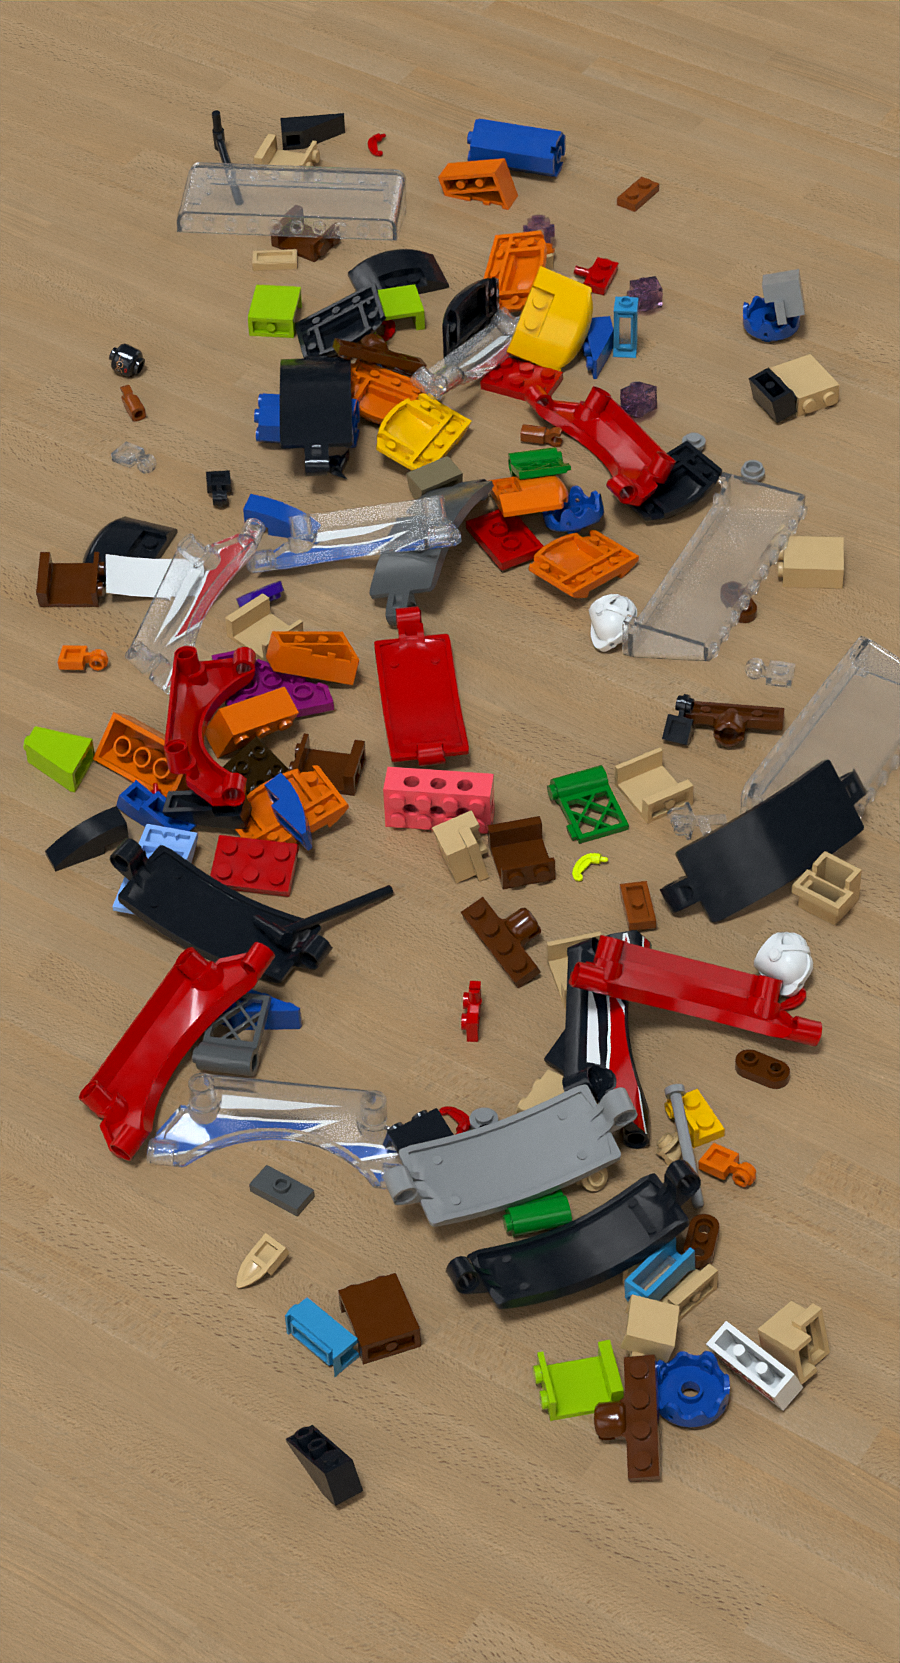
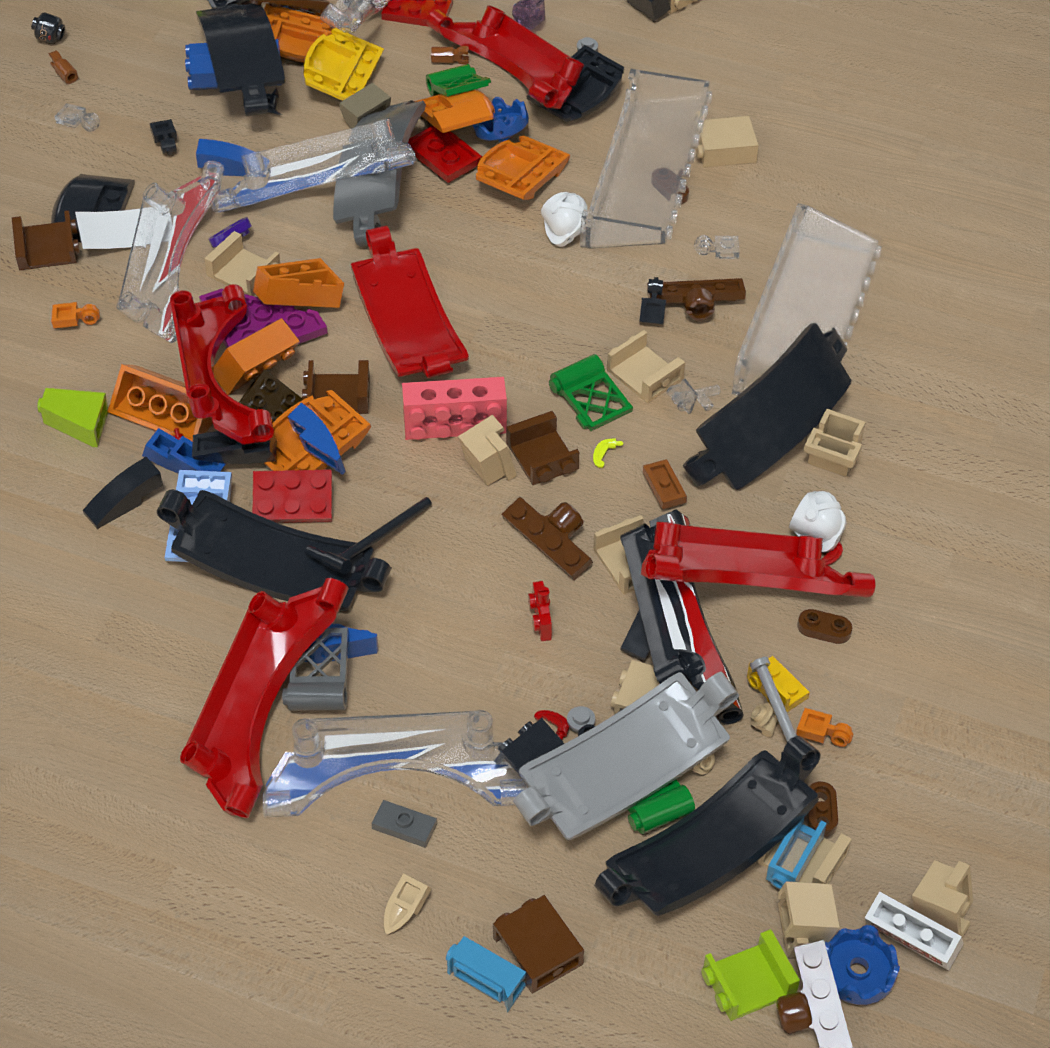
camera: 15 degrees left, 5 degrees up
(753, 470) = (647, 63): light grey plate -> none

